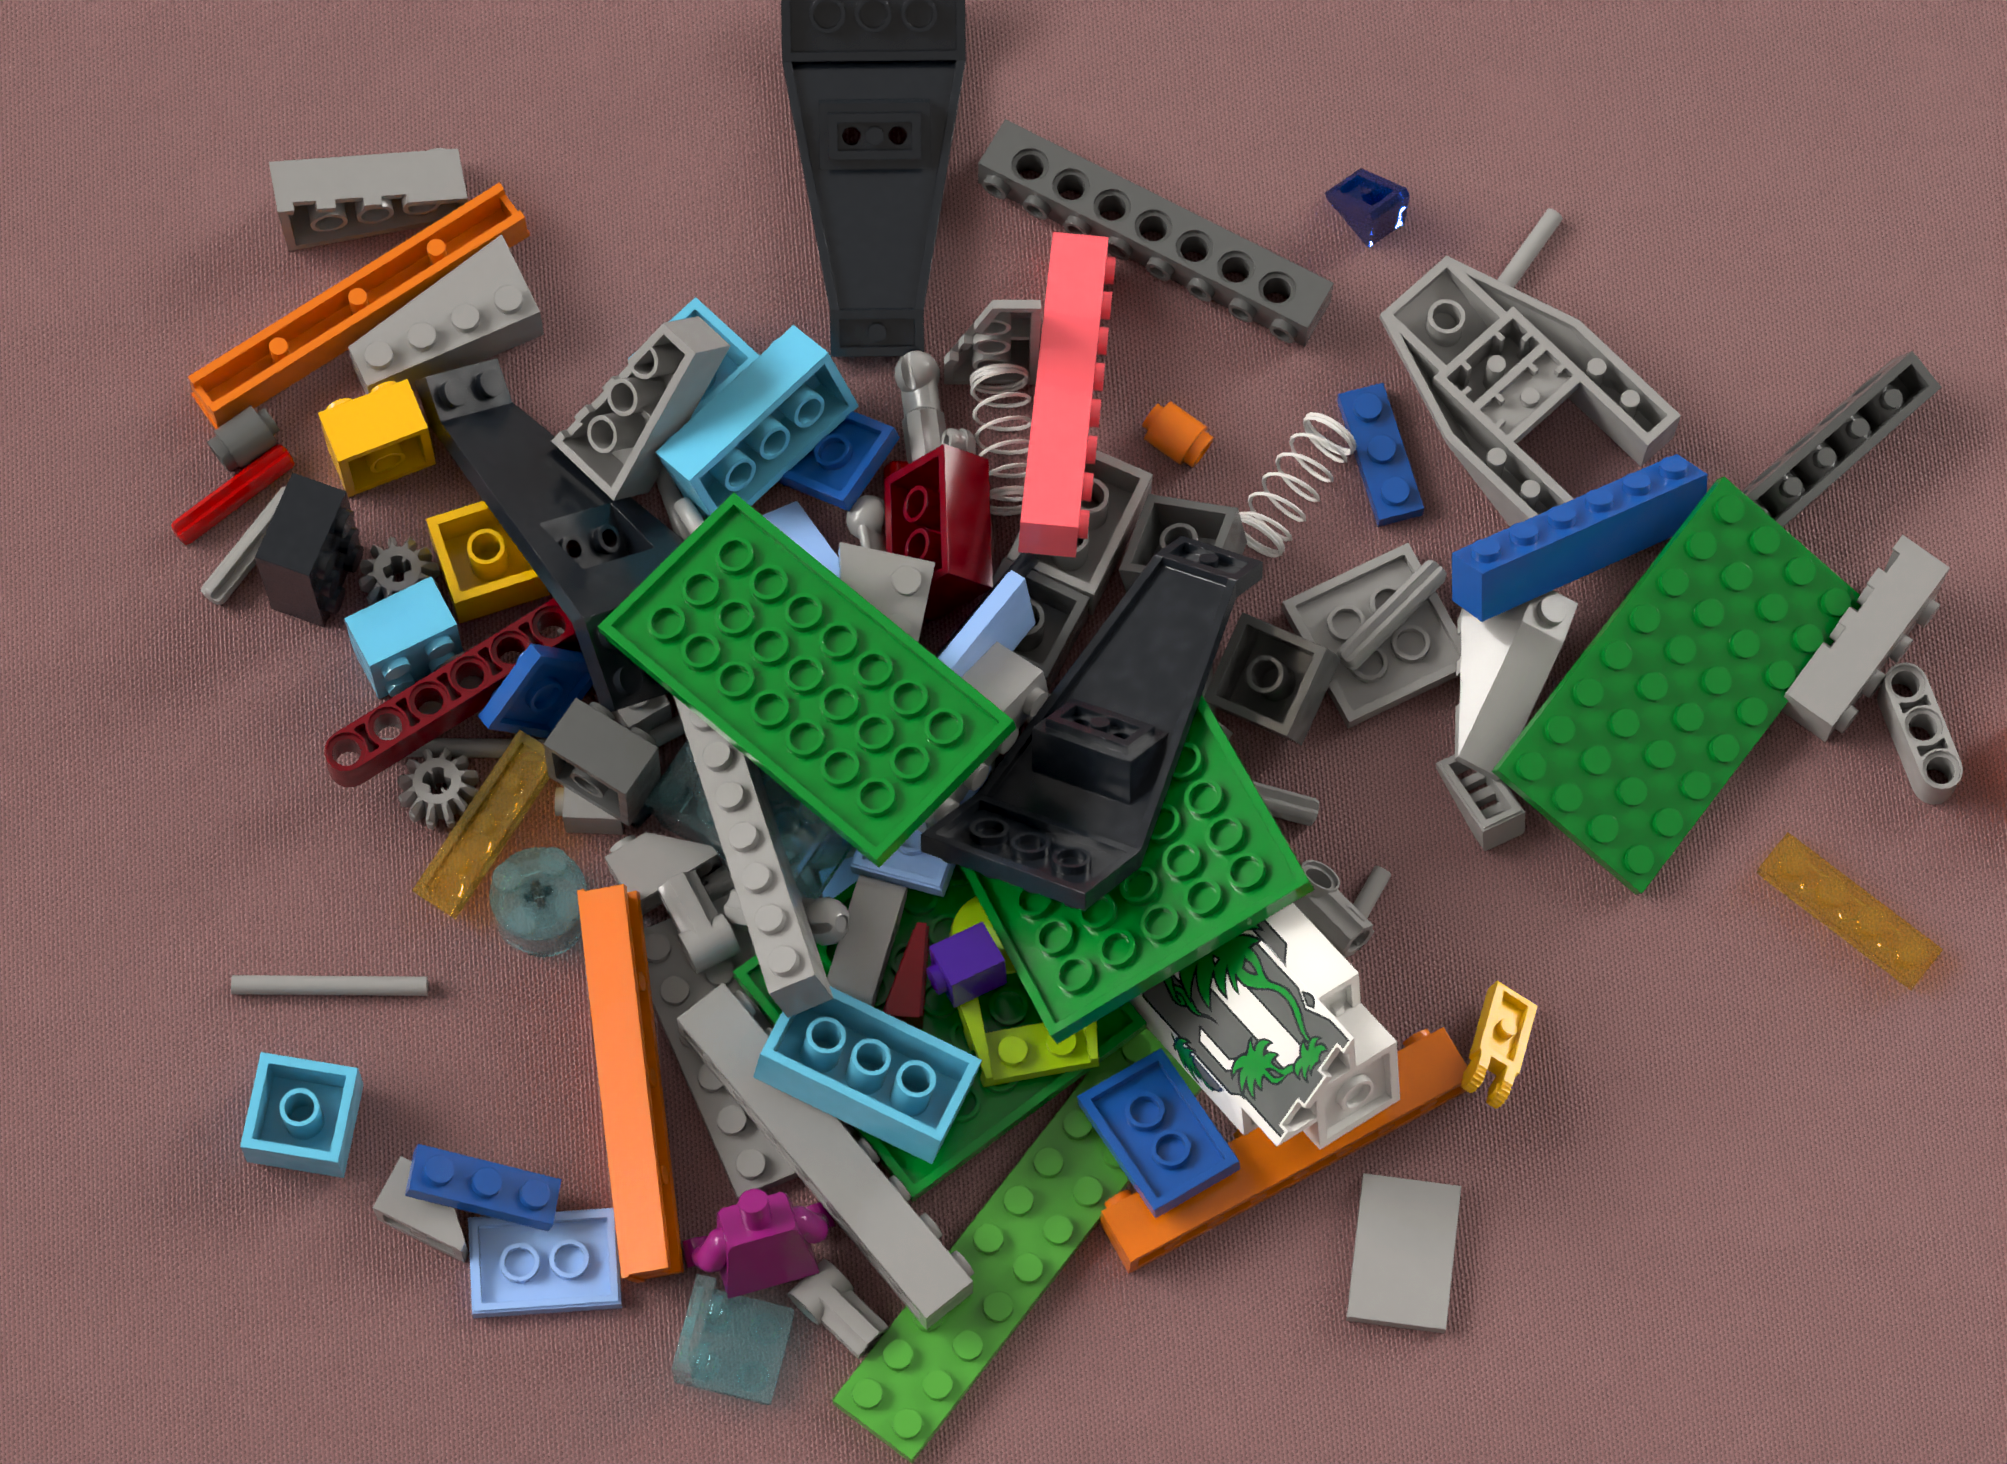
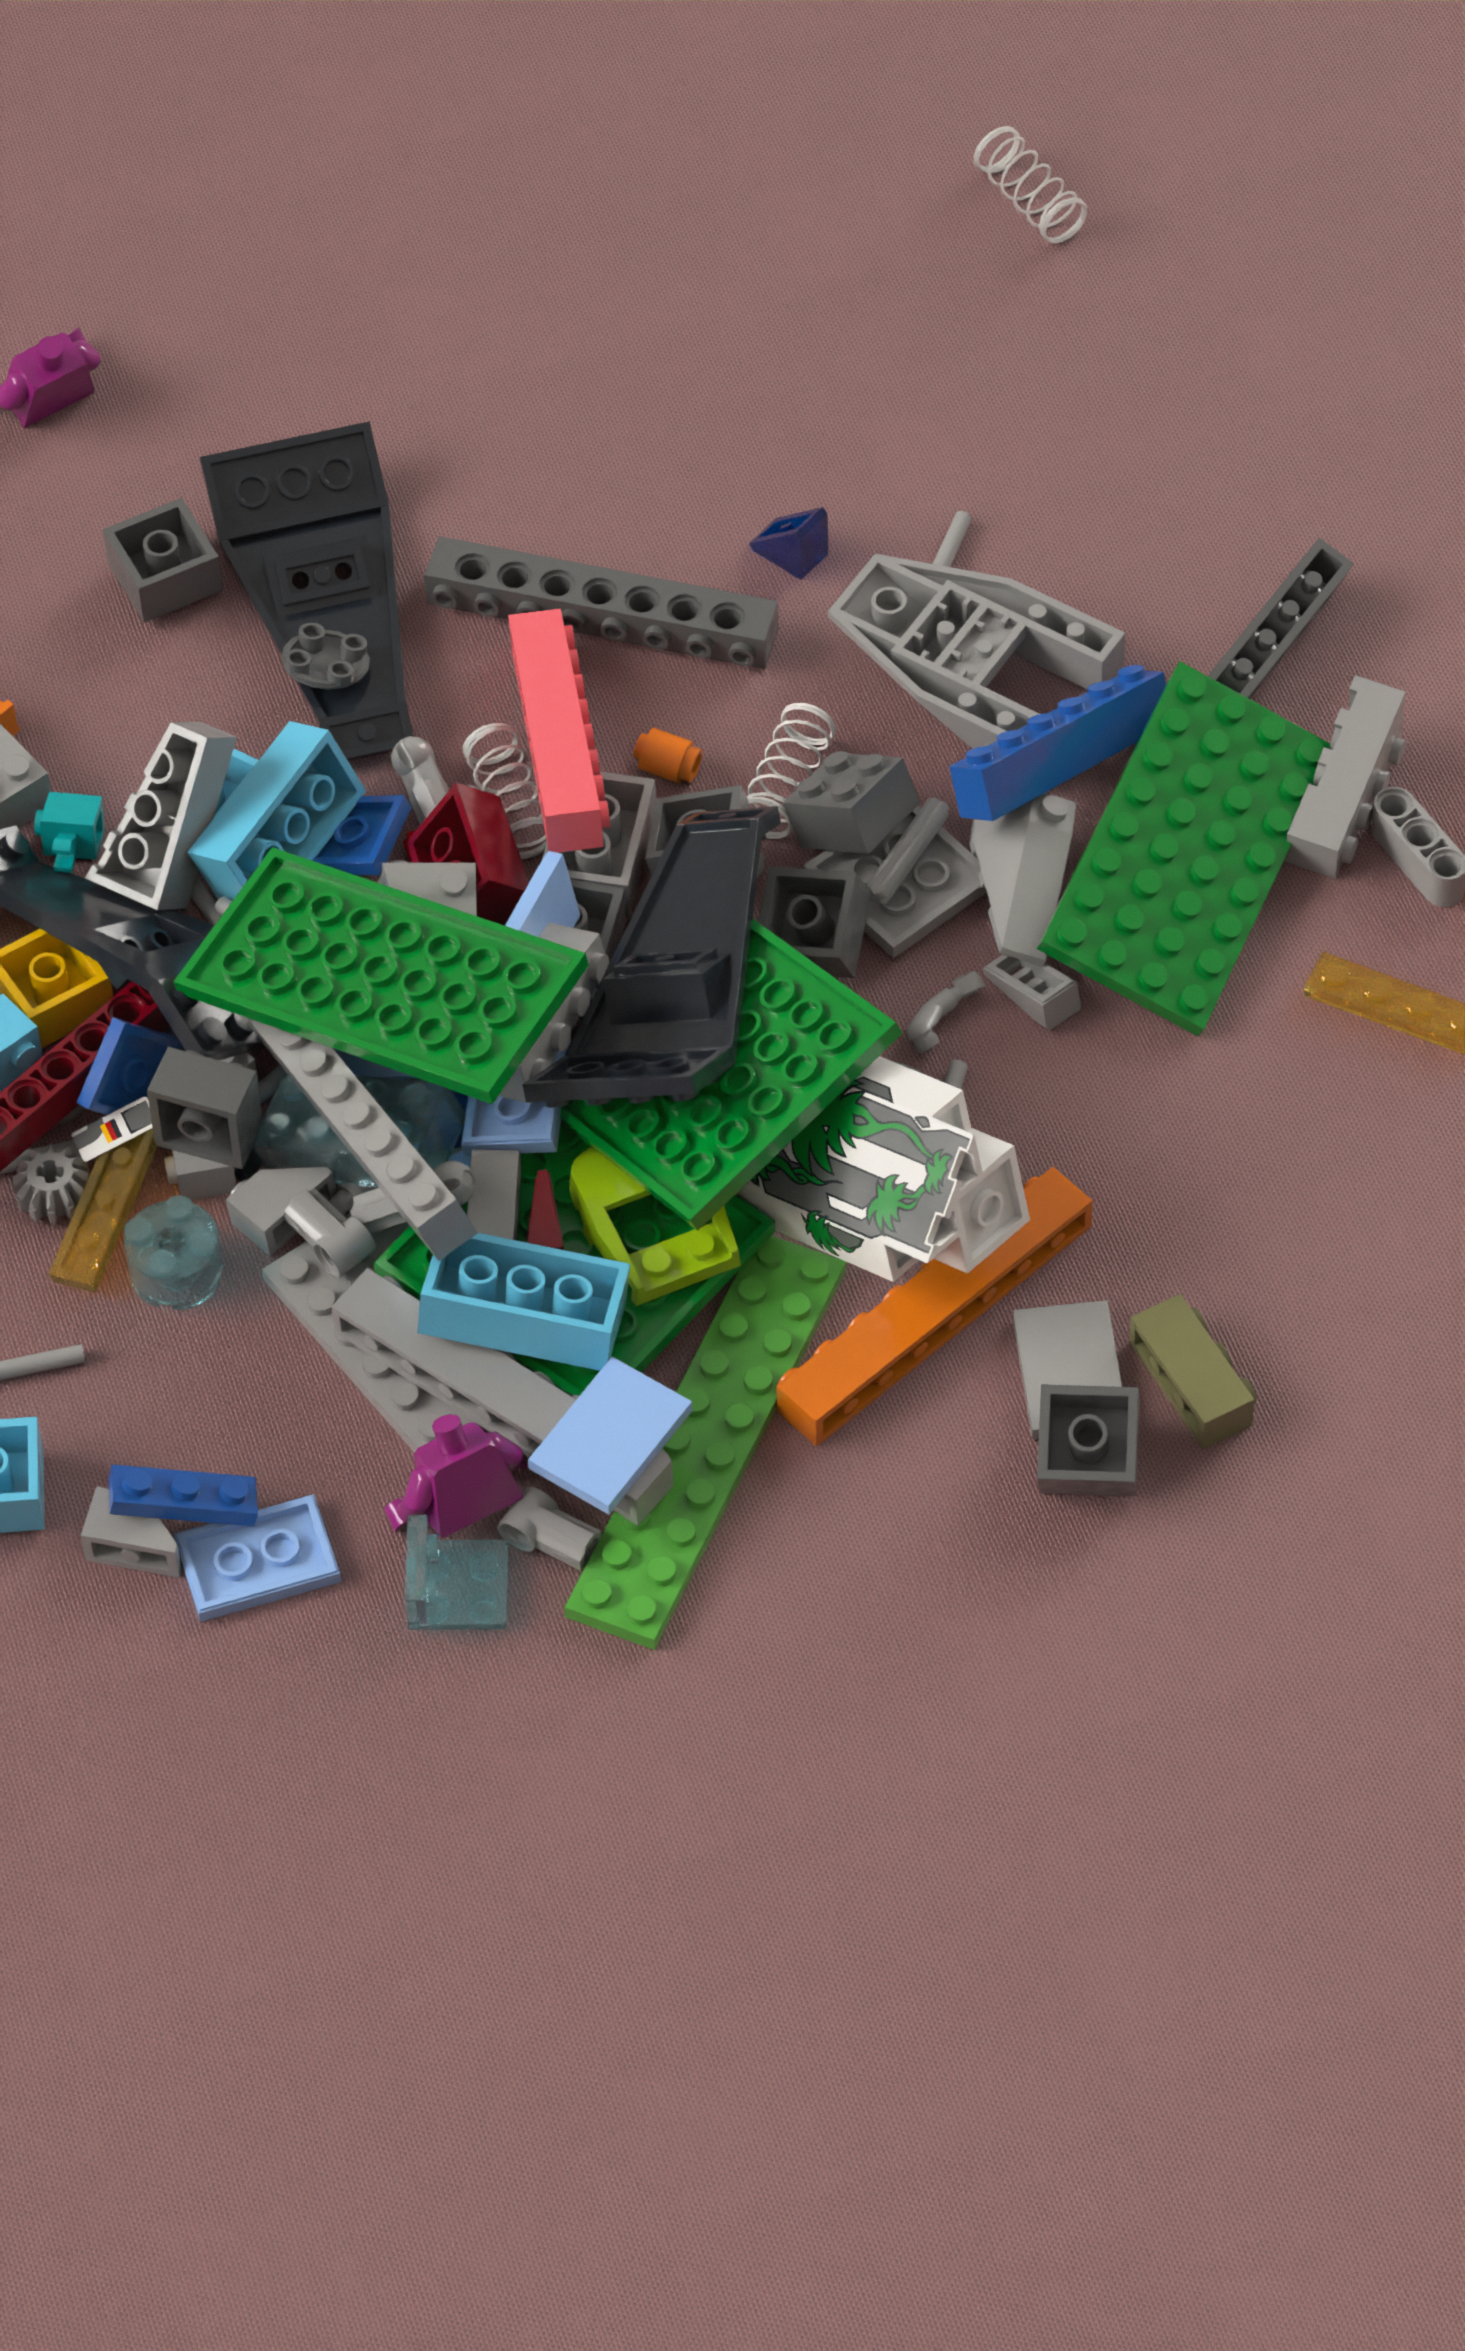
camera: 10 degrees left, 15 degrees down
(508, 750) = (113, 1129): none -> sticker
(550, 375) = (70, 828): none -> teal brick
(630, 1083) = (301, 1380): orange tile -> none
(717, 76) = (162, 560): none -> dark grey brick
(854, 240) = (325, 657): none -> dark grey dish
(917, 1241) = (610, 1435): none -> light blue tile
(966, 965) = (595, 1190): dark purple brick -> none
(1001, 334) = (483, 694): light grey wedge -> none
(1158, 1133) = (812, 1306): blue plate -> none
(1347, 547) = (851, 802): none -> dark grey brick
(1367, 805) = (929, 1014): none -> light grey arm
(1380, 455) = (855, 724): blue plate -> none
(1397, 1353) = (1088, 1440): none -> dark grey brick
(1499, 1042) = (1108, 1169): yellow hinge -> none
(1526, 1290) = (1192, 1370): none -> olive brick

